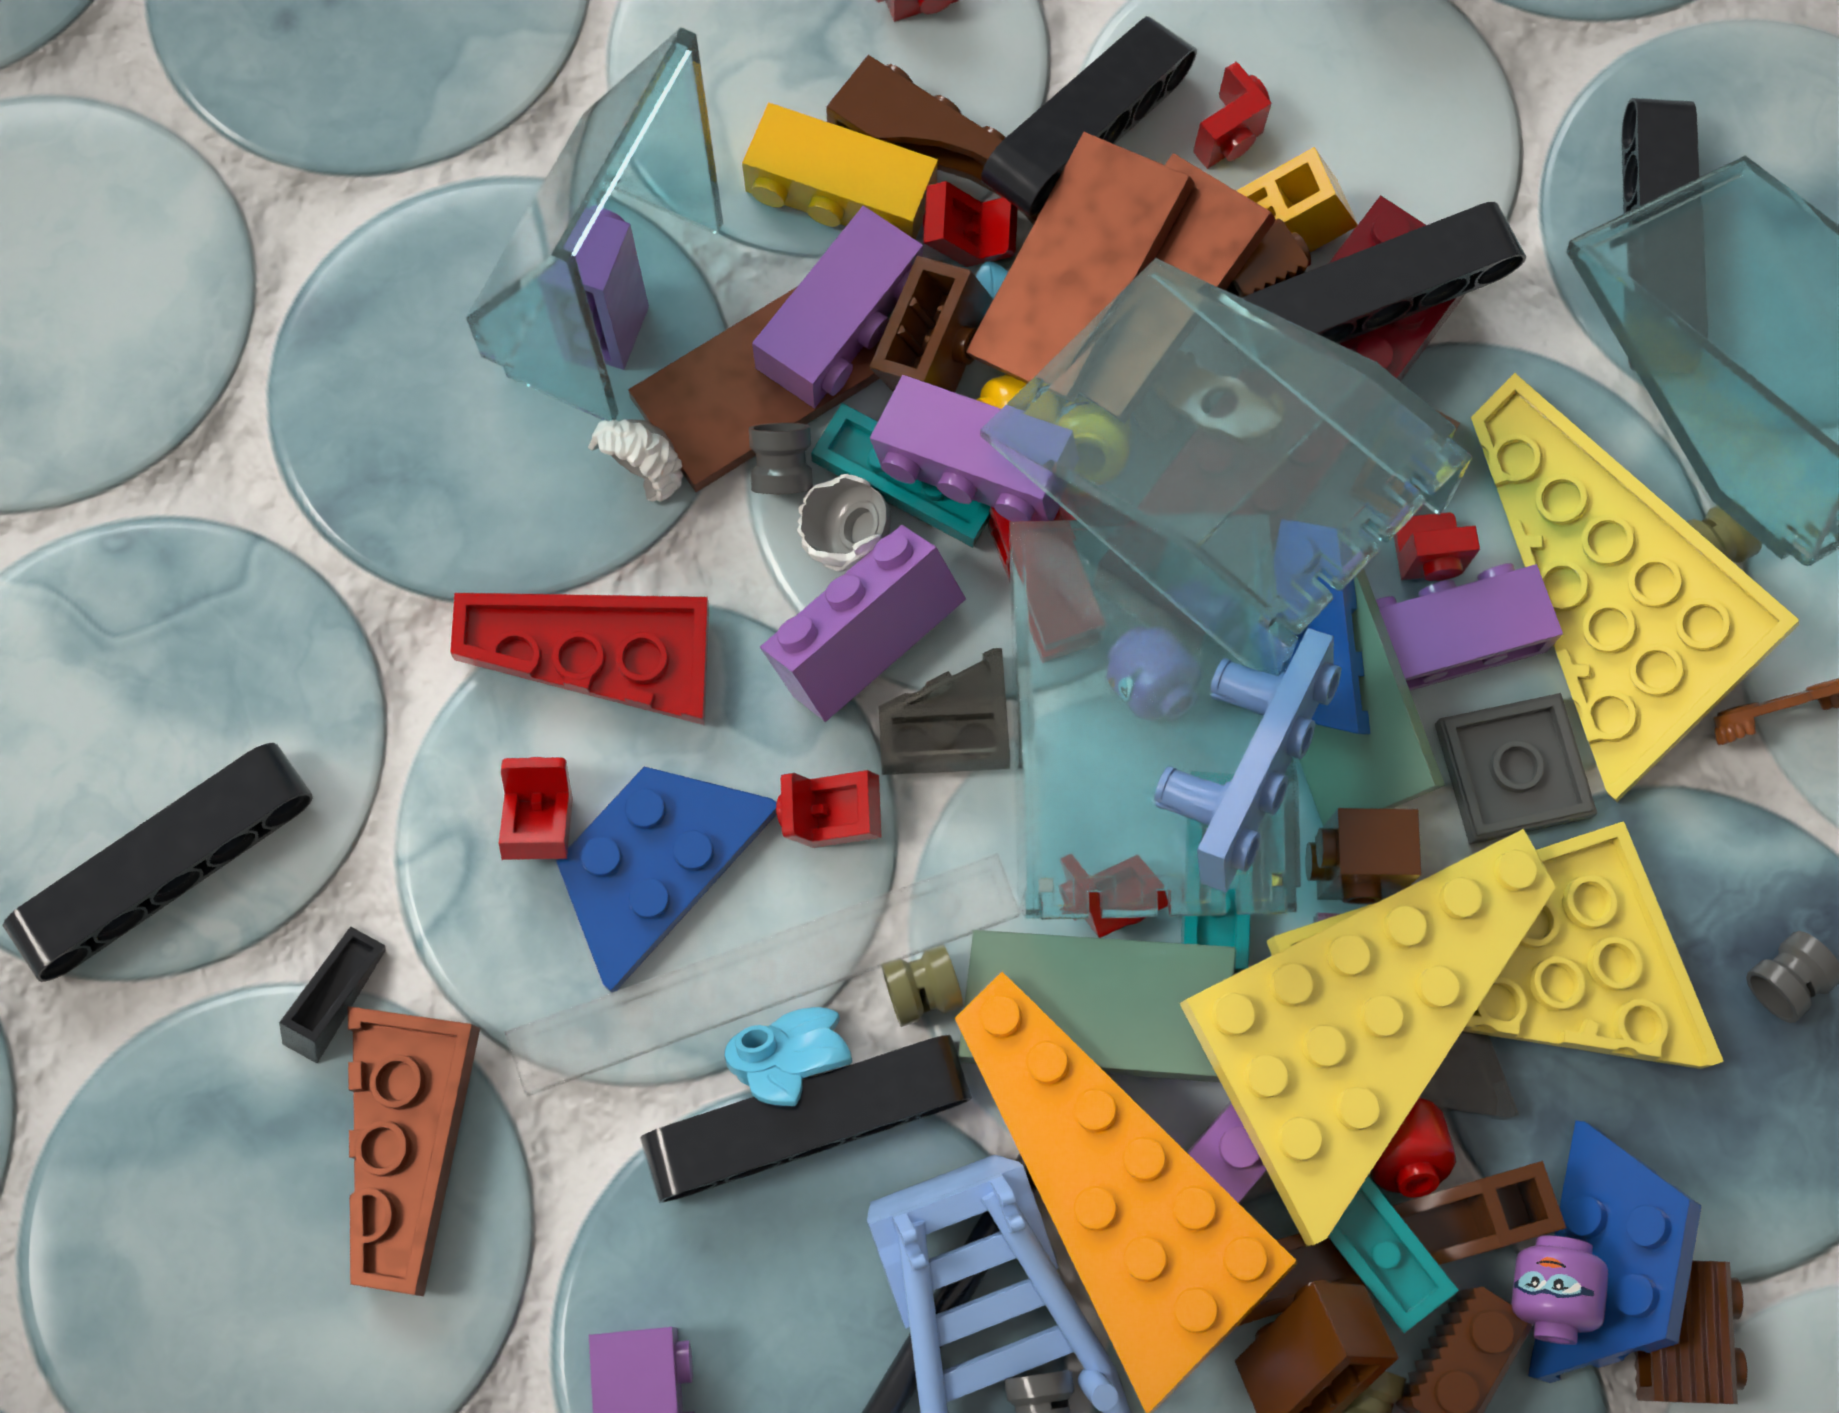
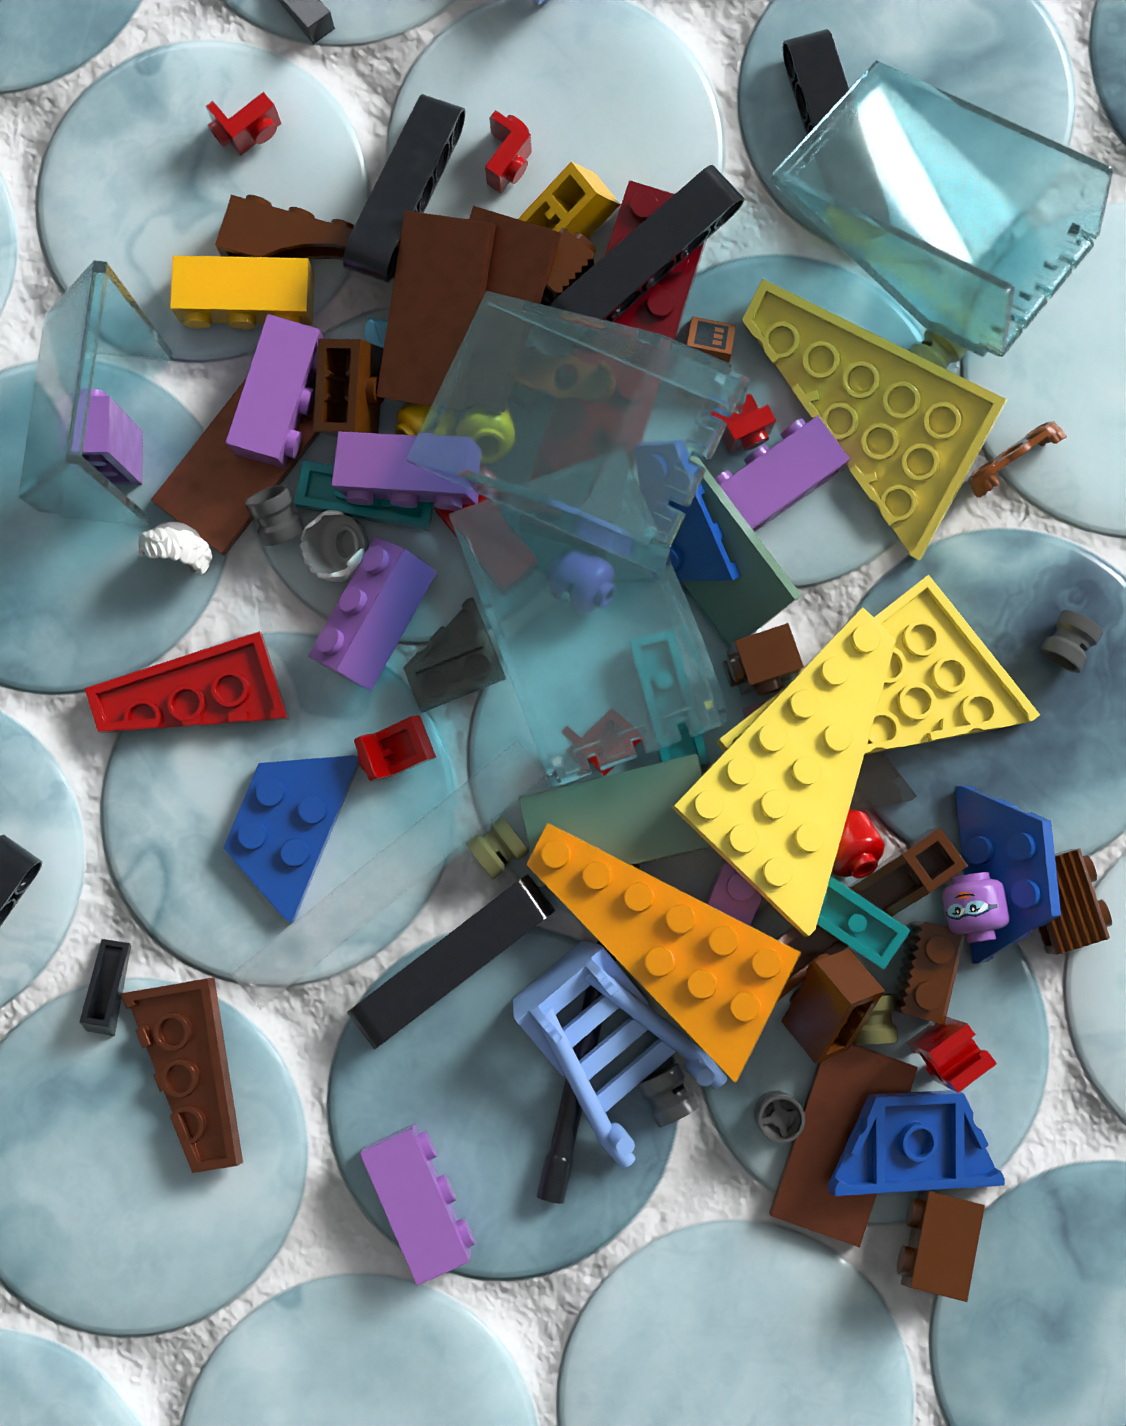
camera: 15 degrees left, 10 degrees up
(535, 808) = (196, 818): red bracket -> none
(782, 1054) = (423, 924): medium azure plate -> none
(968, 228) = (346, 298): red bracket -> none
(1259, 781) = (676, 650): medium blue plate -> none
(1515, 768) = (846, 559): dark grey tile -> none

